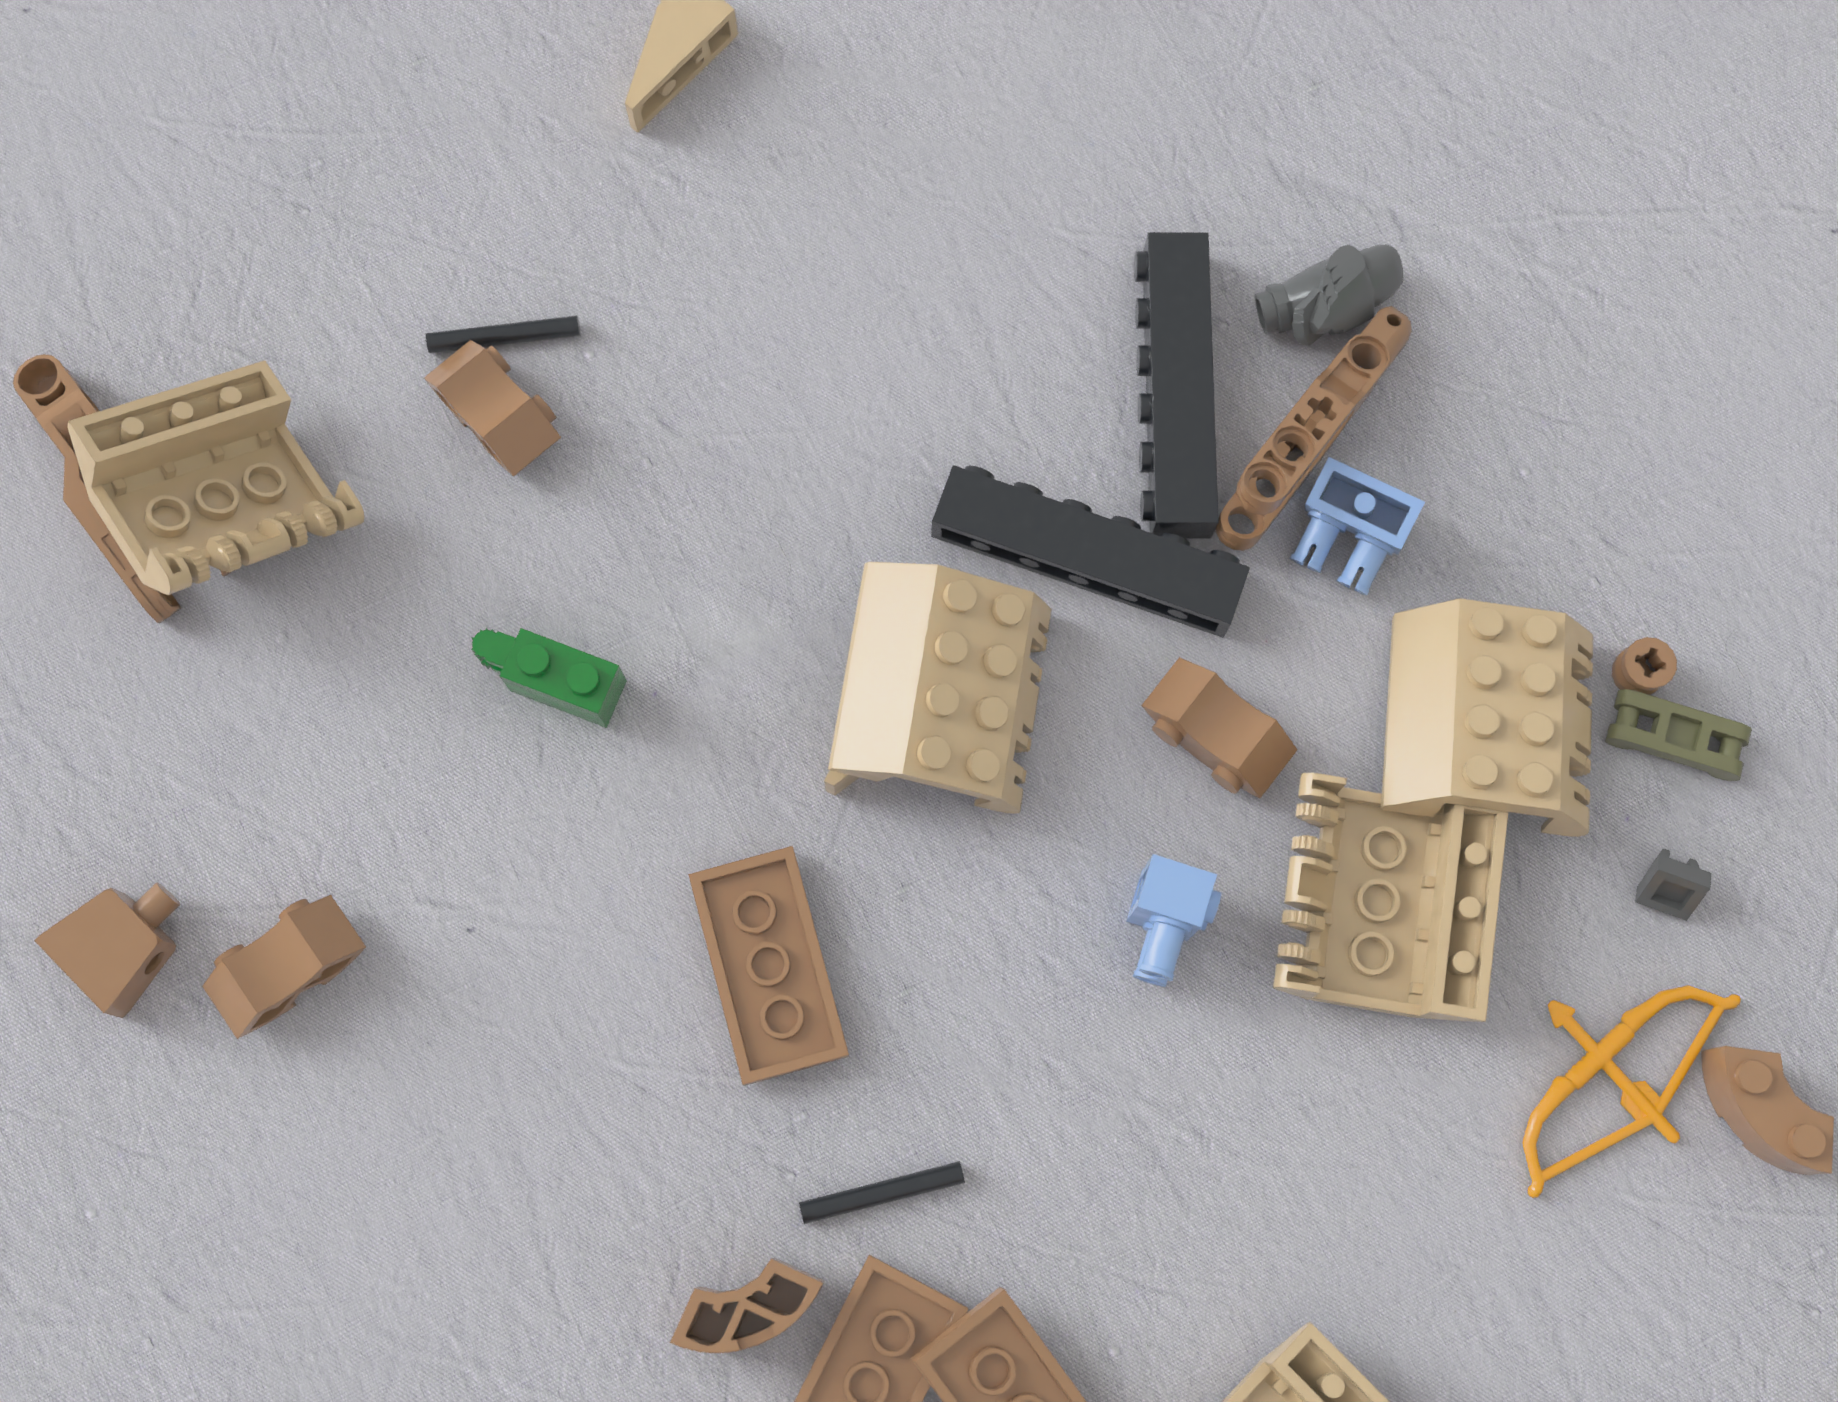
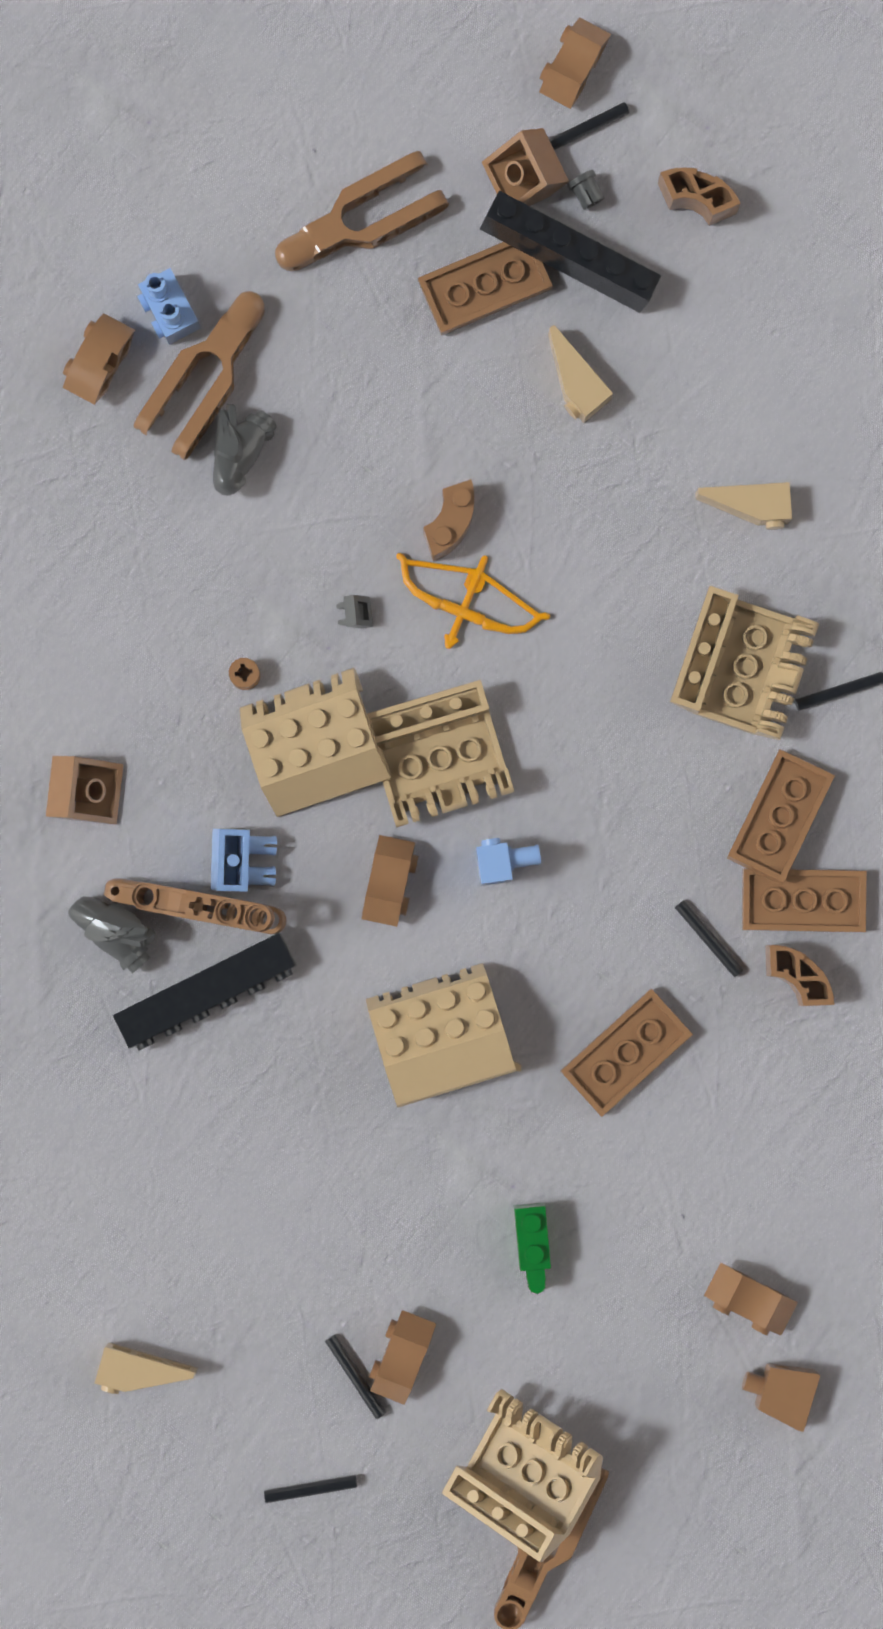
camera: 115 degrees left, 10 degrees up
(381, 200) = (310, 1489): none -> black bar
(1089, 550) = (324, 995): black brick -> none
(1564, 355) = (84, 789): none -> medium nougat slope
(1679, 734) = (272, 641): olive plate -> none

